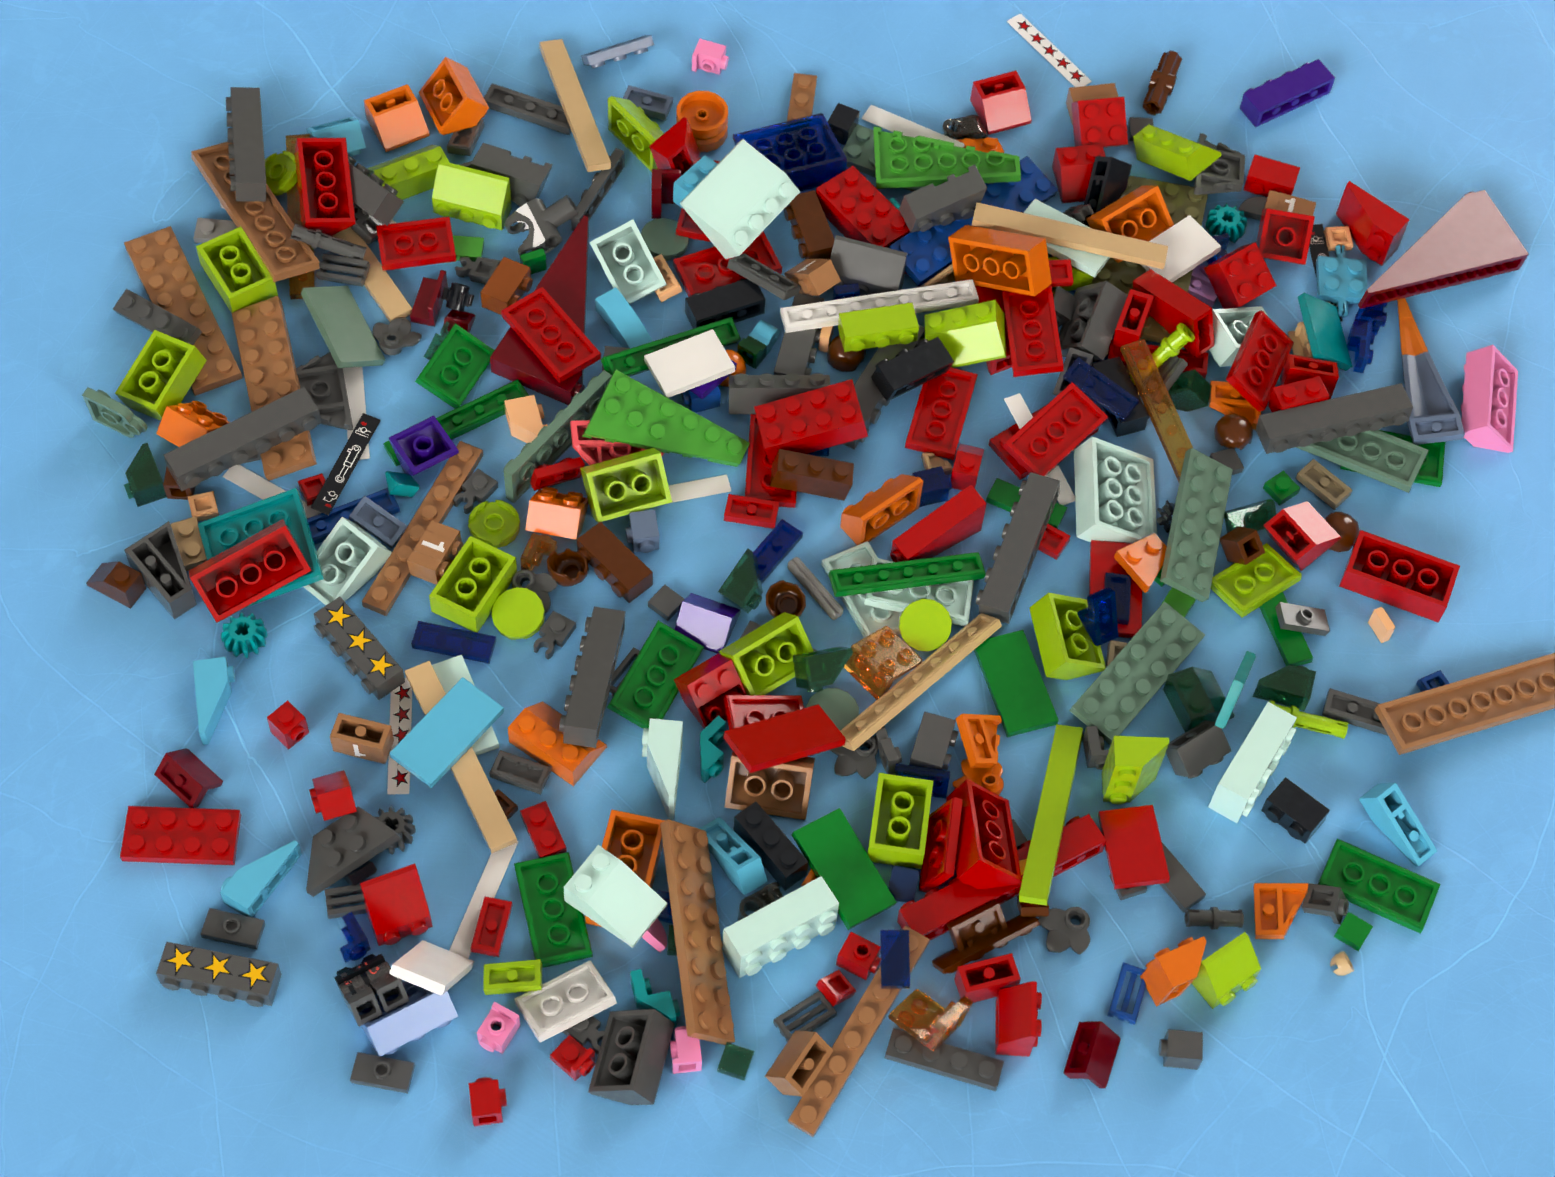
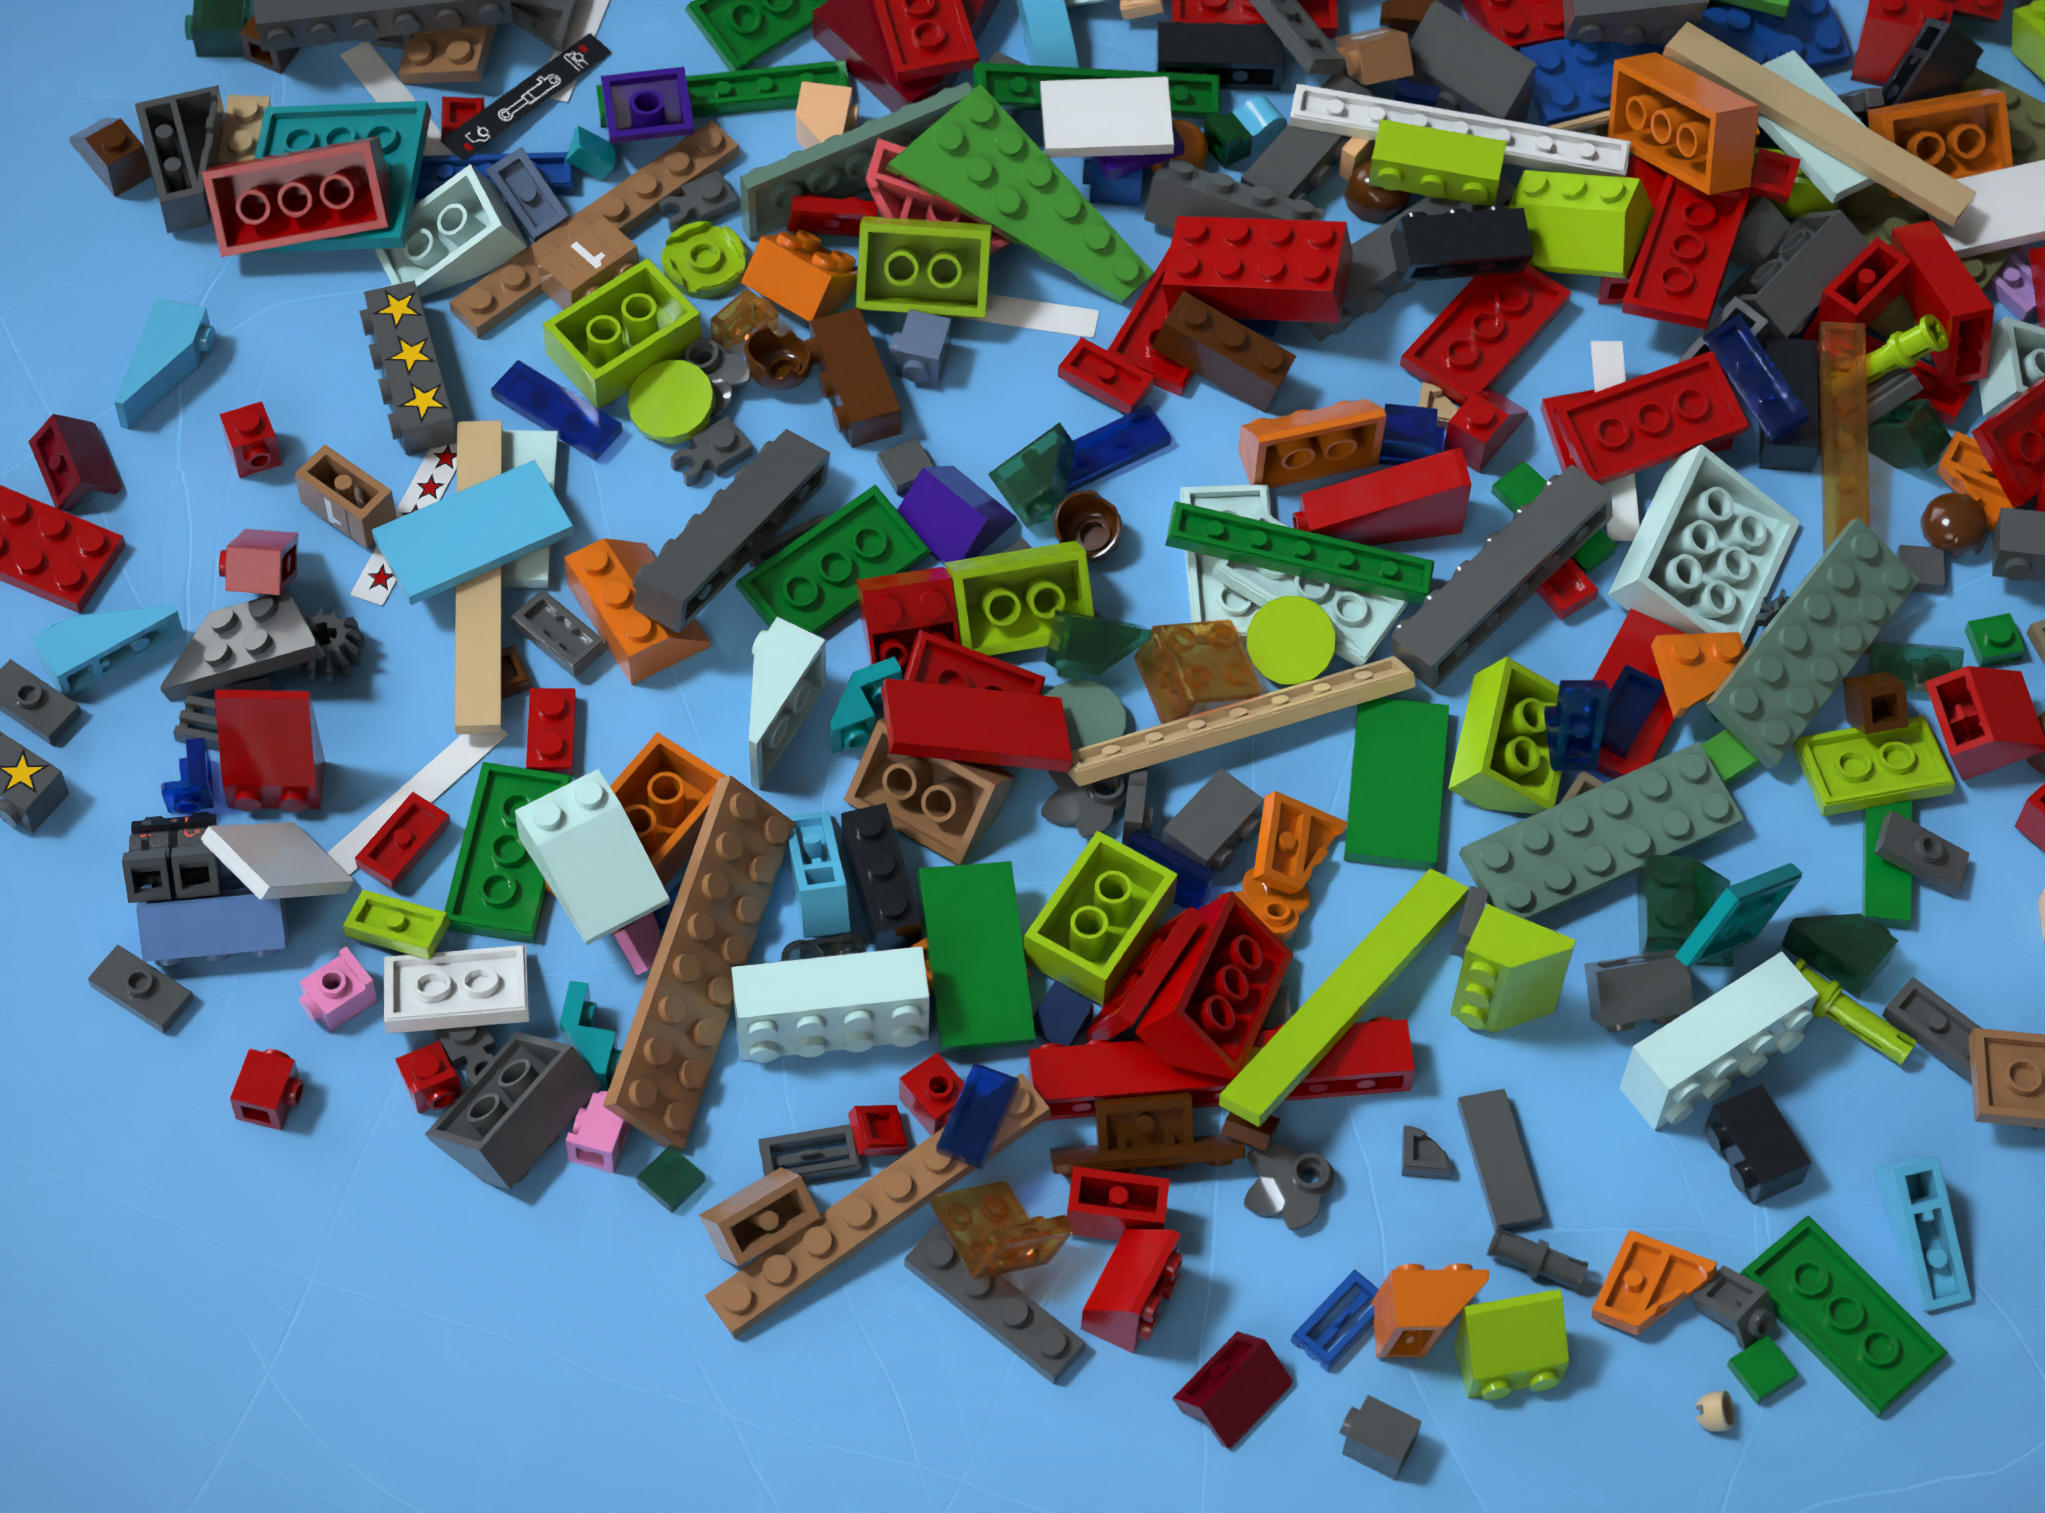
camera: 25 degrees right, 0 degrees up
(203, 506) = (290, 86): light nougat tile -> none
(253, 632) = (253, 289): teal gear -> none
(815, 588) = (1149, 526): light grey axle -> none
(1133, 847) = (1458, 1099): red tile -> none

